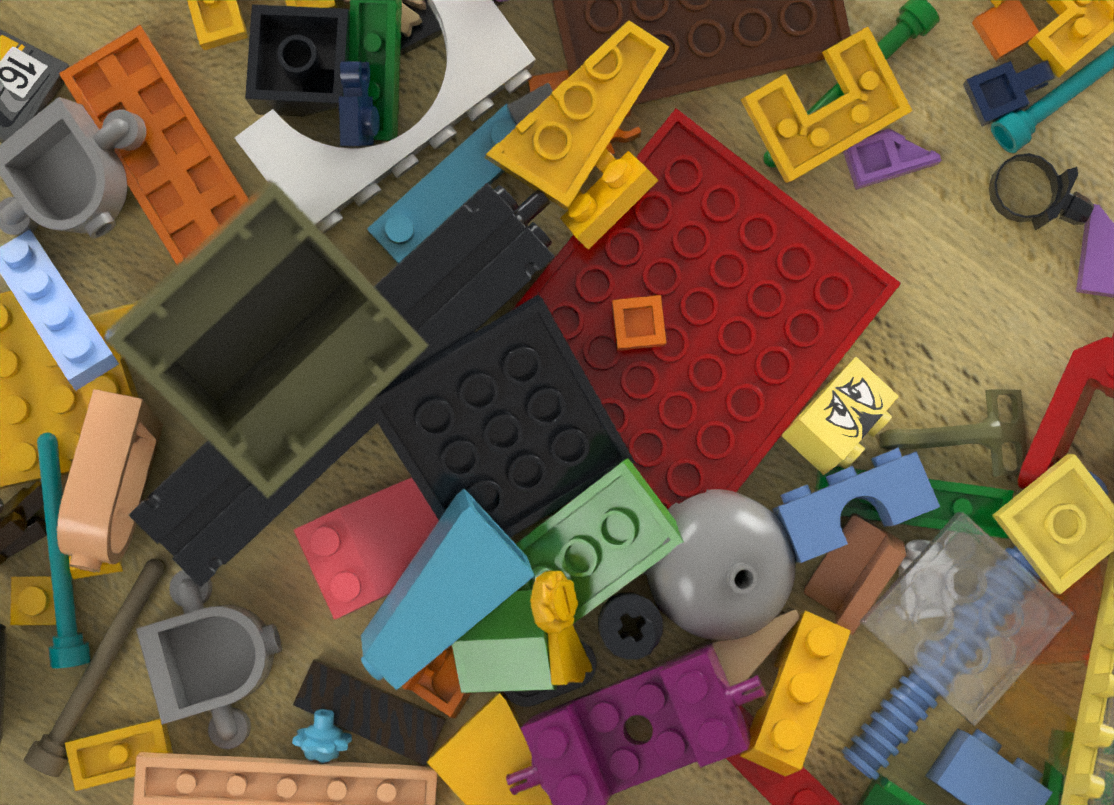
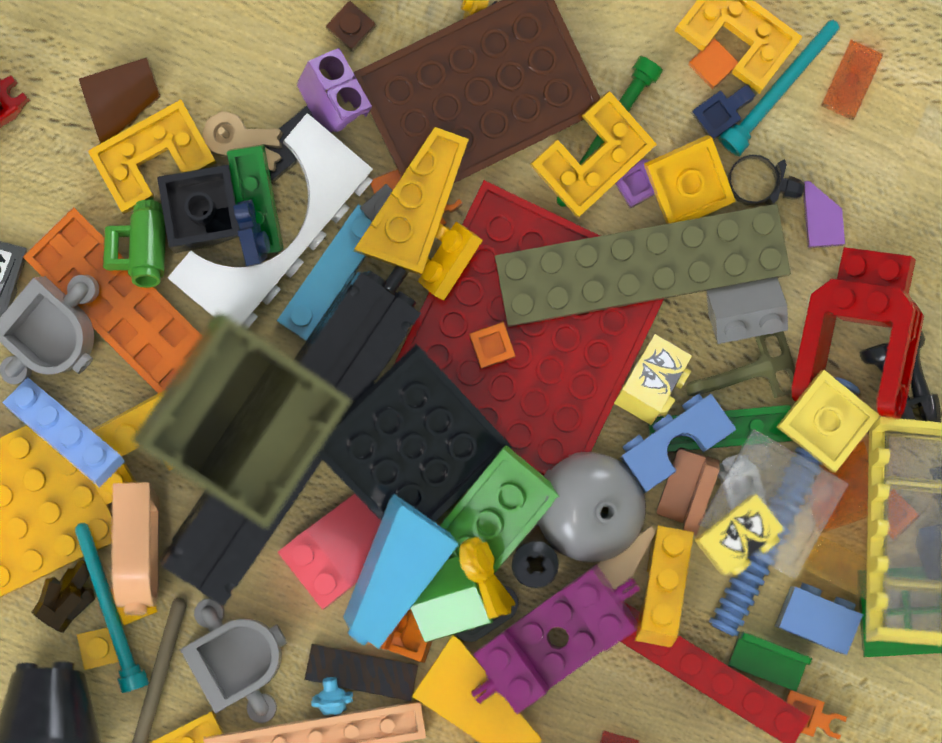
camera: 15 degrees left, 0 degrees up
(218, 95) = (146, 245): none -> bright green piece
(860, 263) = (642, 265): none -> olive plate
(917, 652) = (740, 535): none -> light yellow brick
(944, 170) = (690, 181): none -> yellow plate
(984, 352) = (747, 310): none -> light grey brick

